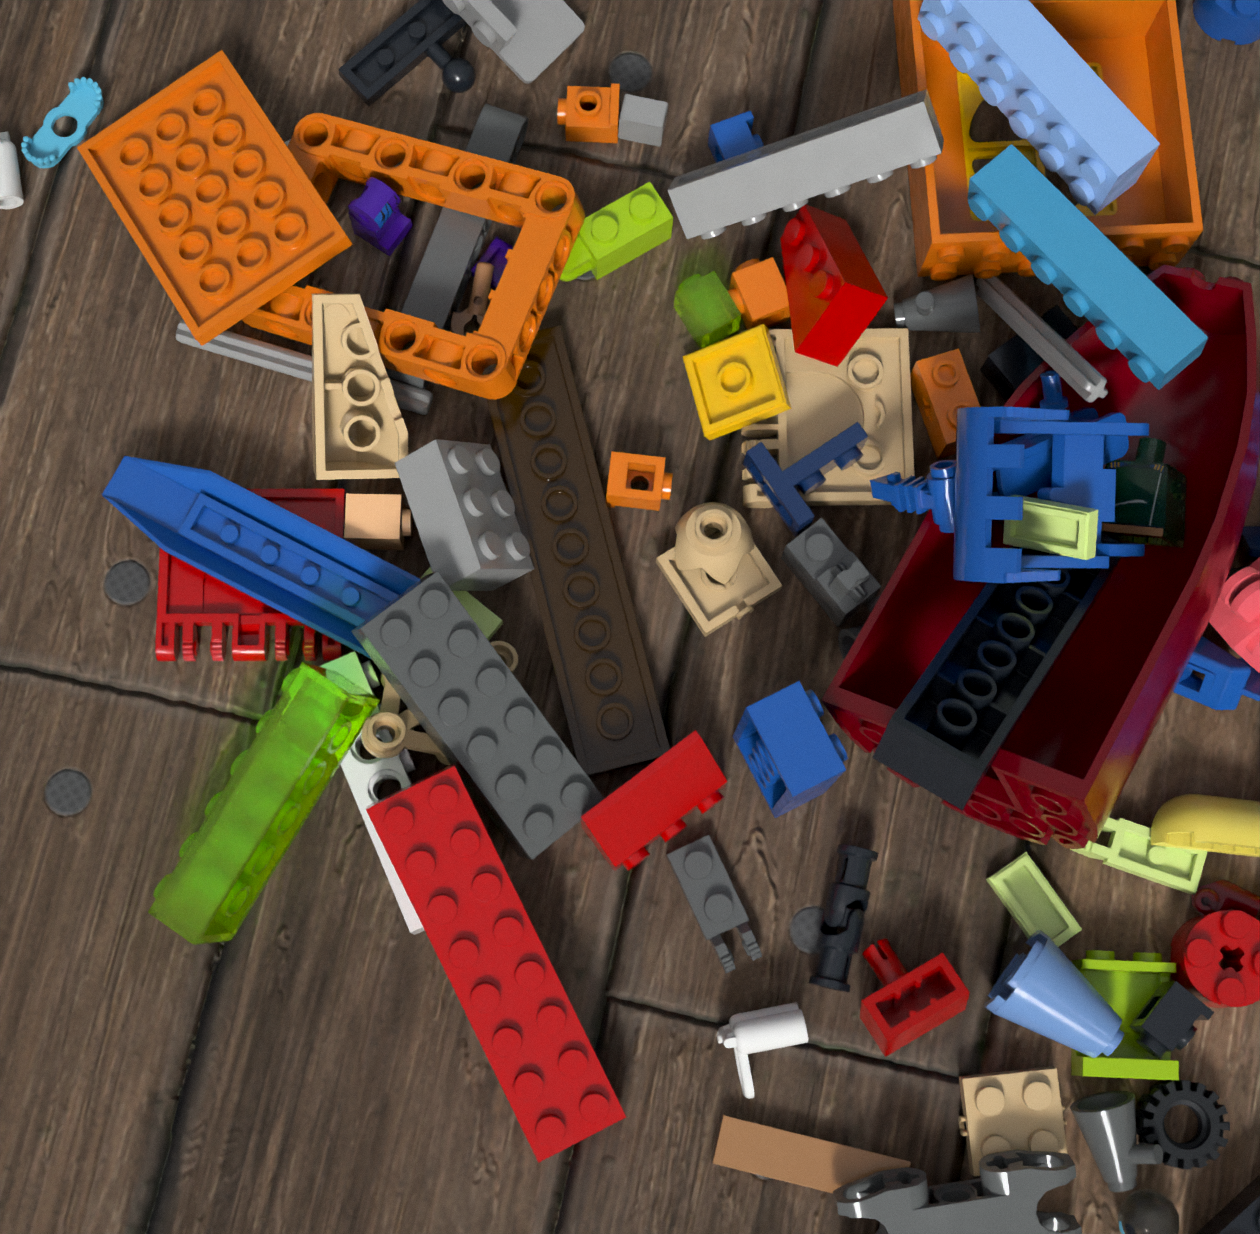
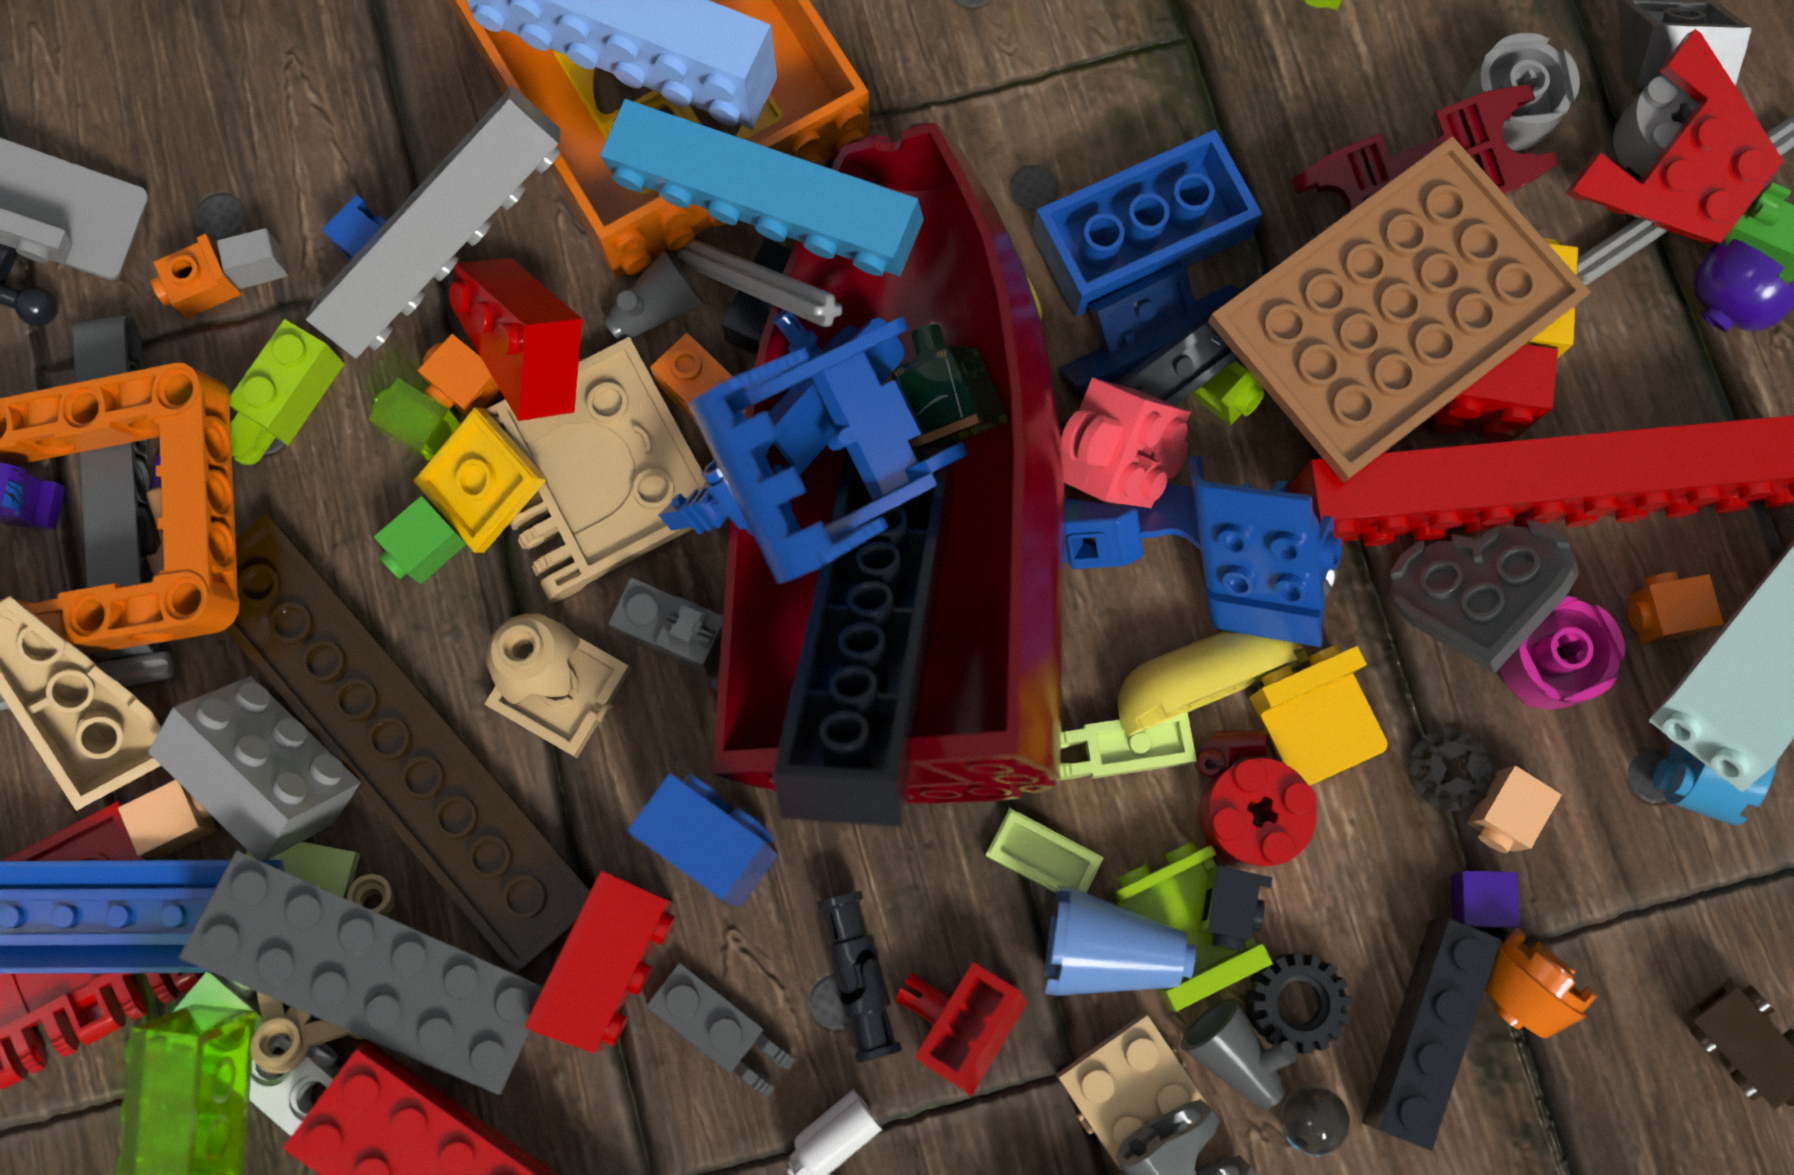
camera: 25 degrees left, 0 degrees up
(628, 468) = (408, 631): orange brick -> none
(666, 406) = (418, 542): none -> bright green brick
(804, 475) = (593, 538): dark blue bracket -> none
(1054, 528) = (857, 473): yellowish green tile -> none

